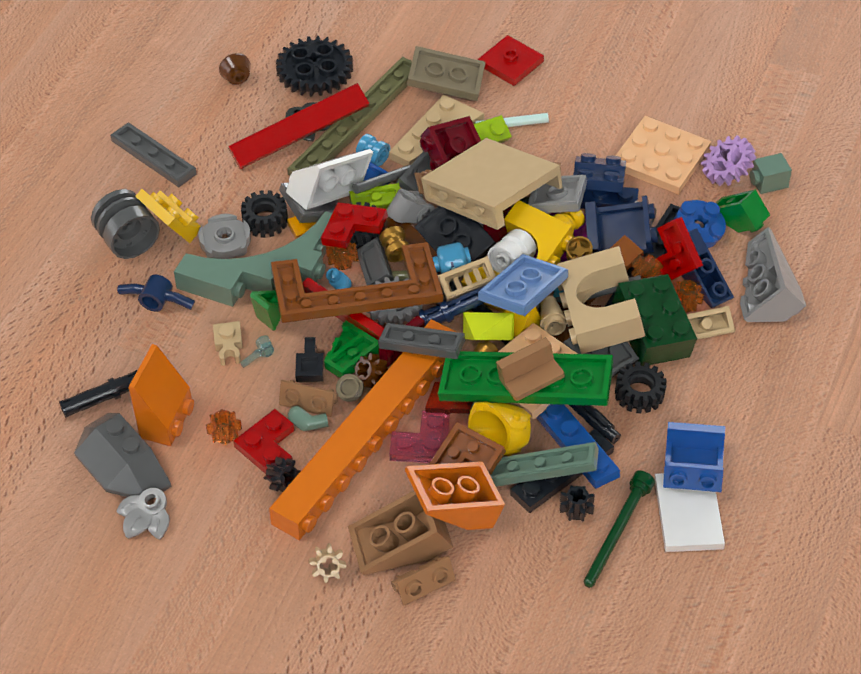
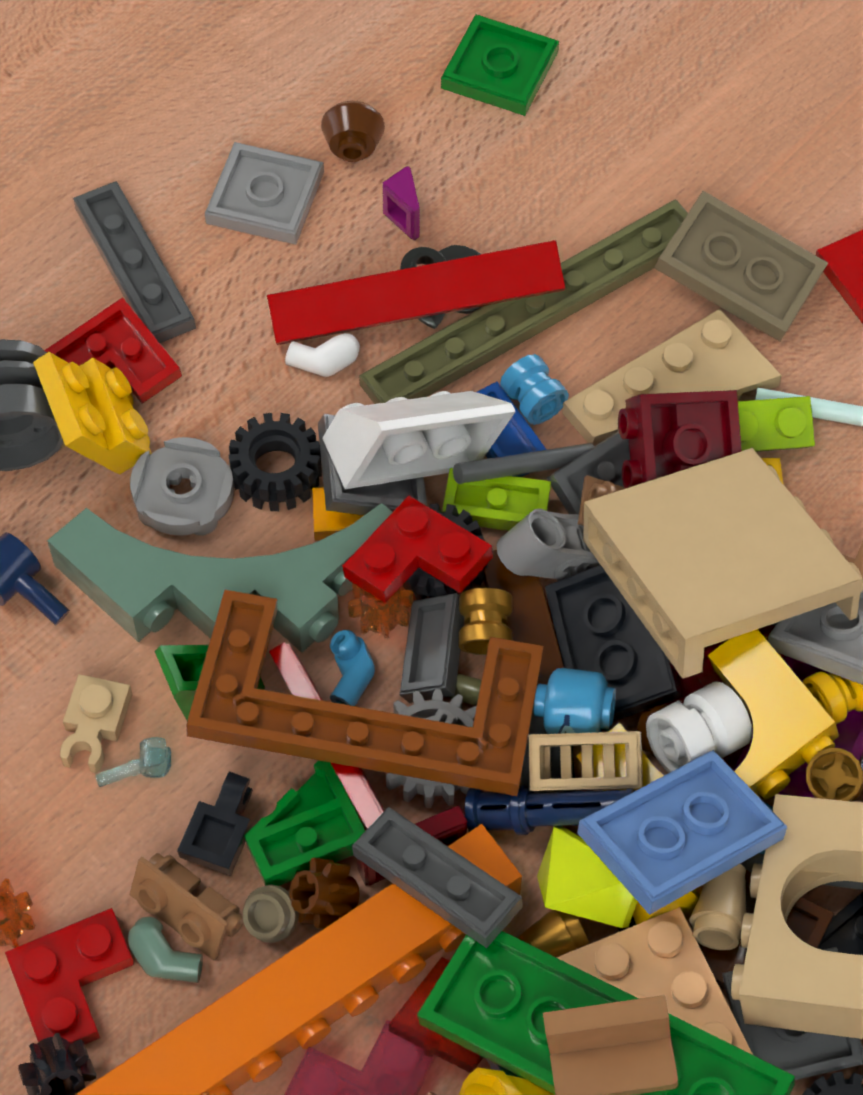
camera: 20 degrees right, 10 degrees up
(170, 183) = (123, 342): none -> red plate
(203, 108) = (264, 193): none -> light grey tile
(267, 167) = (325, 359): none -> white arm
(274, 92) = (401, 202): none -> magenta slope
(291, 23) = (500, 64): none -> green tile
(314, 66) = (501, 169): black gear -> none

